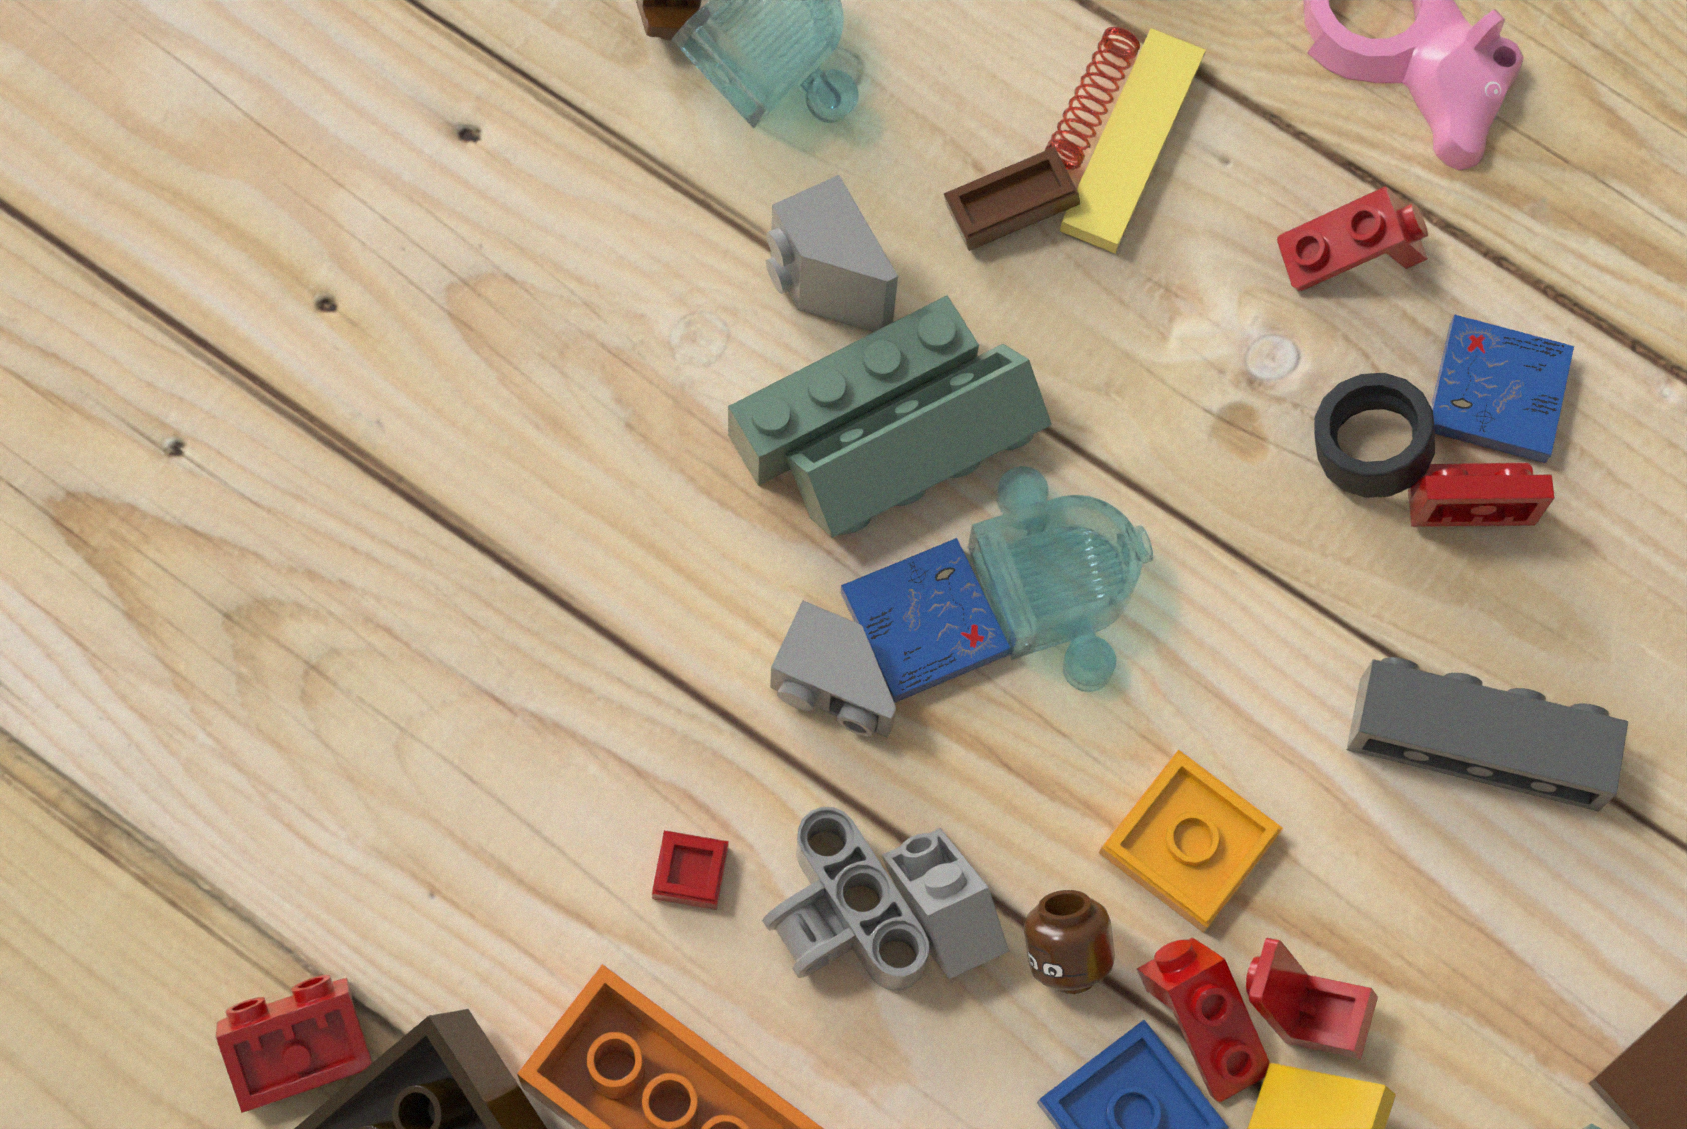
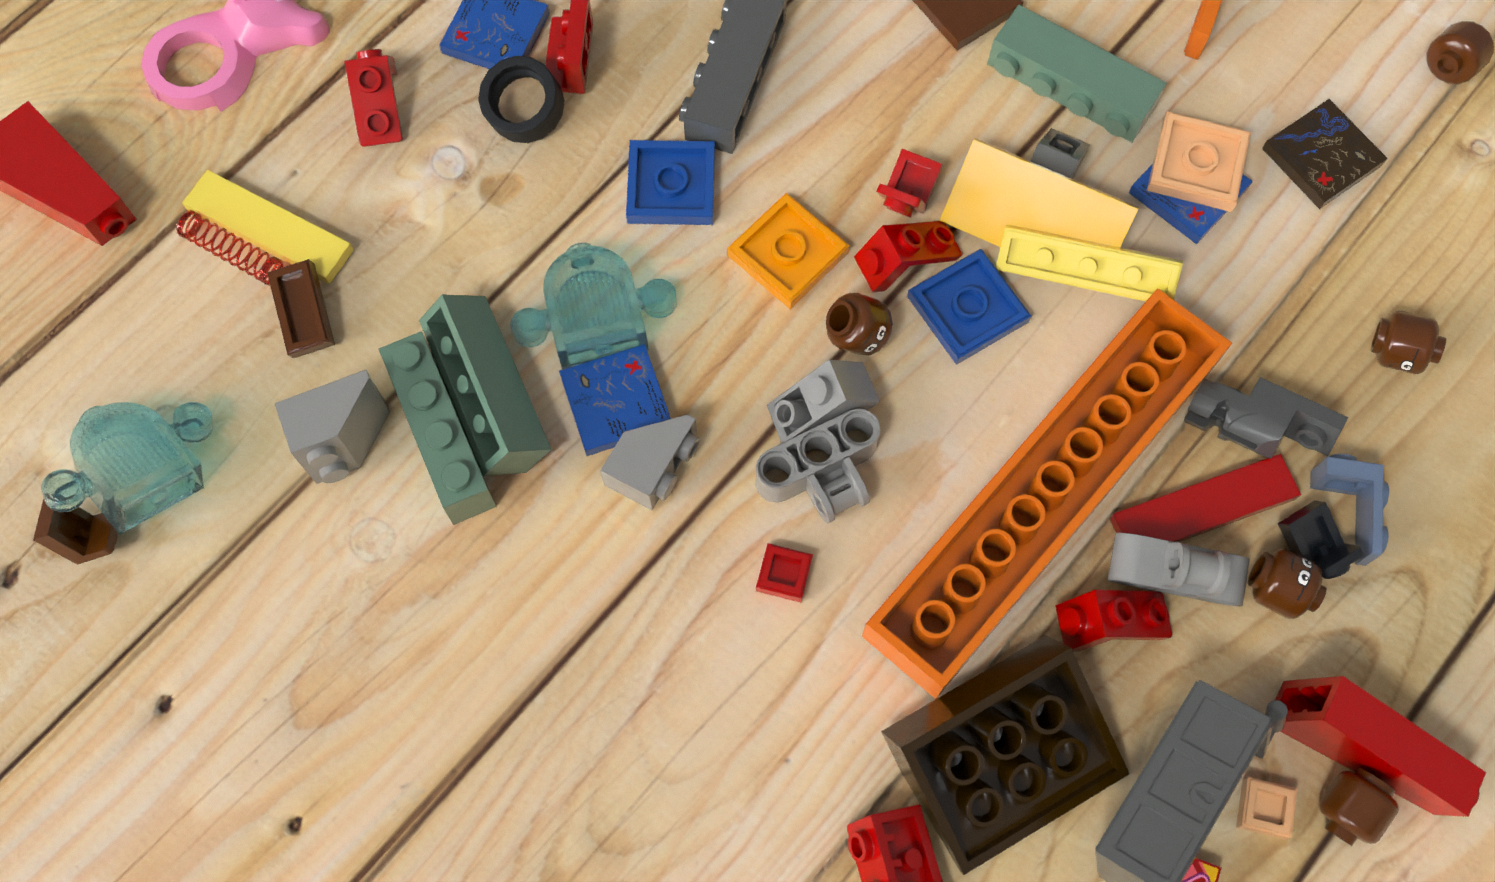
camera: 80 degrees left, 0 degrees up
(1280, 663) = (670, 182): none -> blue tile

